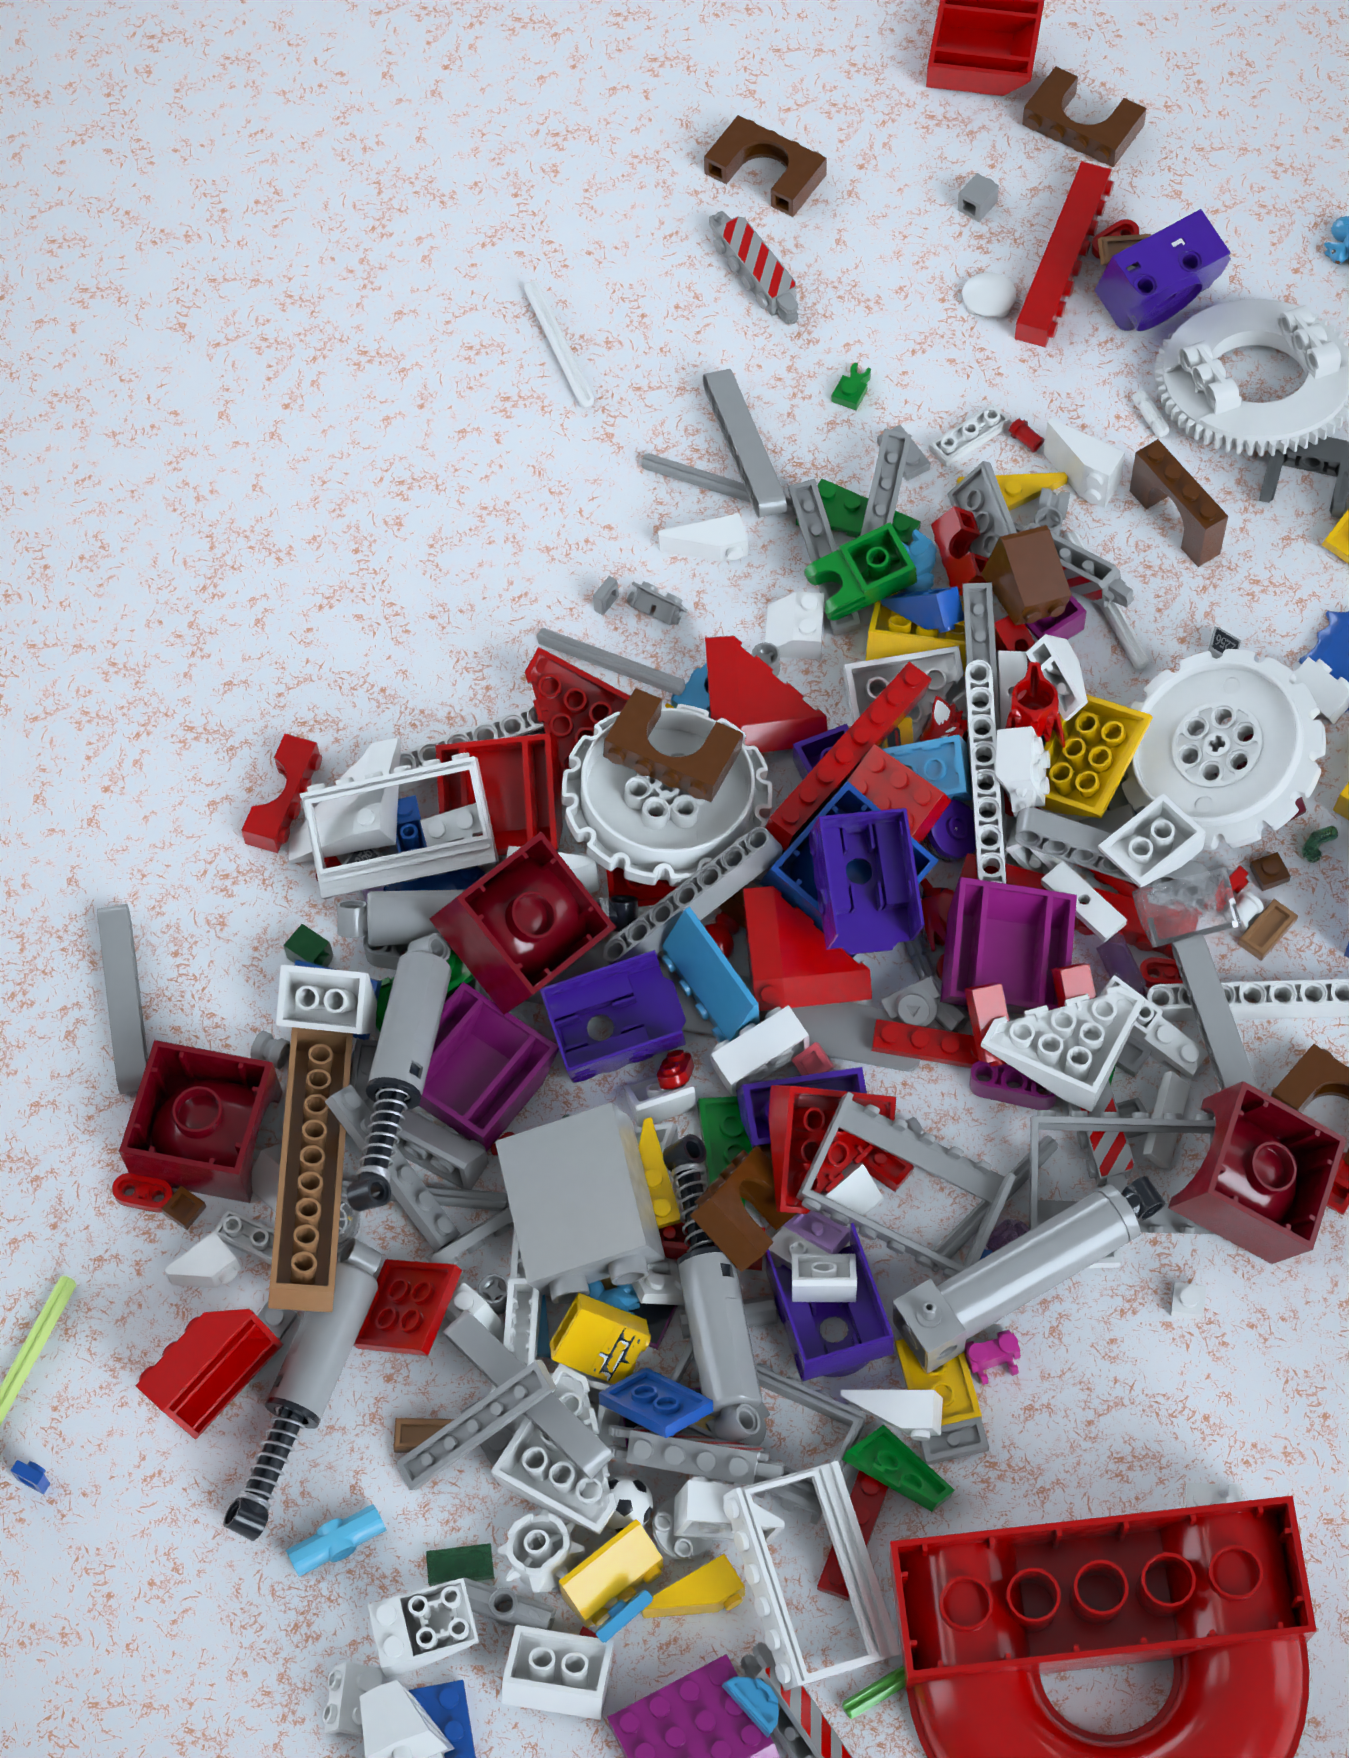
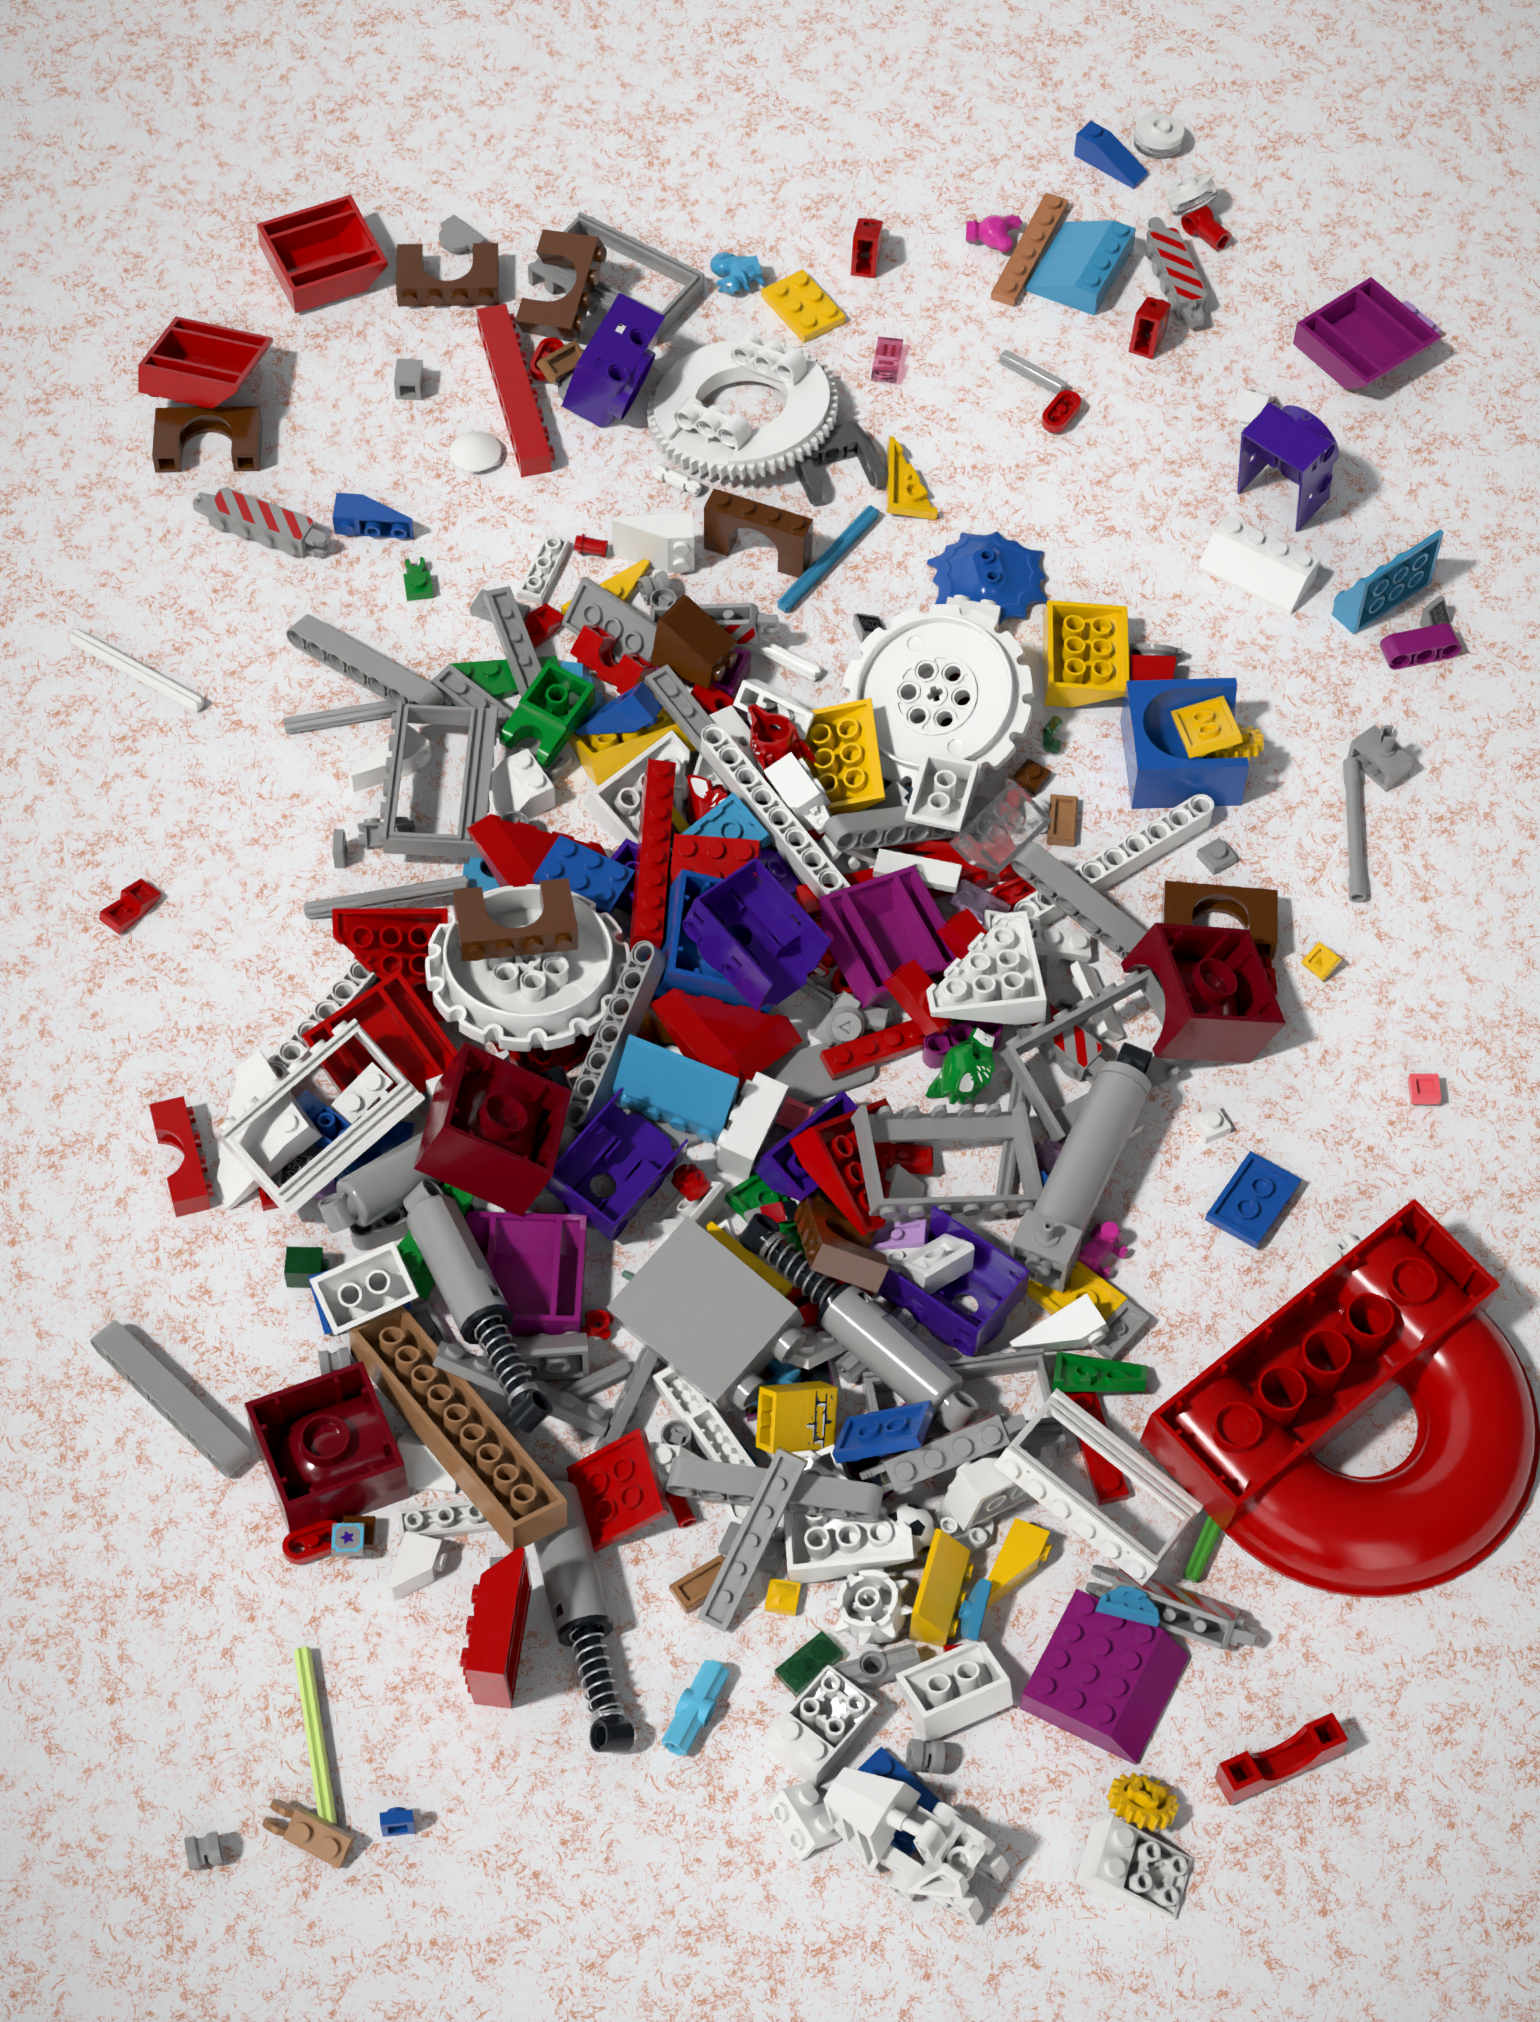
camera: 40 degrees left, 5 degrees down
(166, 1208) = (347, 1539): none -> light grey tile
(409, 550) = (132, 905): none -> red slope
(453, 1360) = (680, 1510): none -> red pin
(482, 1491) = (782, 1597): none -> yellow tile
(490, 1714) = (925, 1756): none -> light grey wheel
(724, 1141) = (777, 1211): none -> sticker
(750, 600) = (476, 780): none -> light grey window
(780, 736) = (588, 873): none -> blue plate
(800, 90) = (200, 362): none -> red slope
(845, 304) = (366, 517): none -> blue slope
(928, 486) = (542, 624): none -> red slope
(988, 1119) = (965, 1069): none -> green piece
(1121, 84) = (458, 236): none -> light grey piece
(1160, 206) = (567, 315): none -> reddish brown arch
(1171, 1396) = (1253, 1199): none -> blue plate
(1202, 196) = (632, 248): none -> light grey window
(1234, 560) = (827, 559): none -> dark azure axle

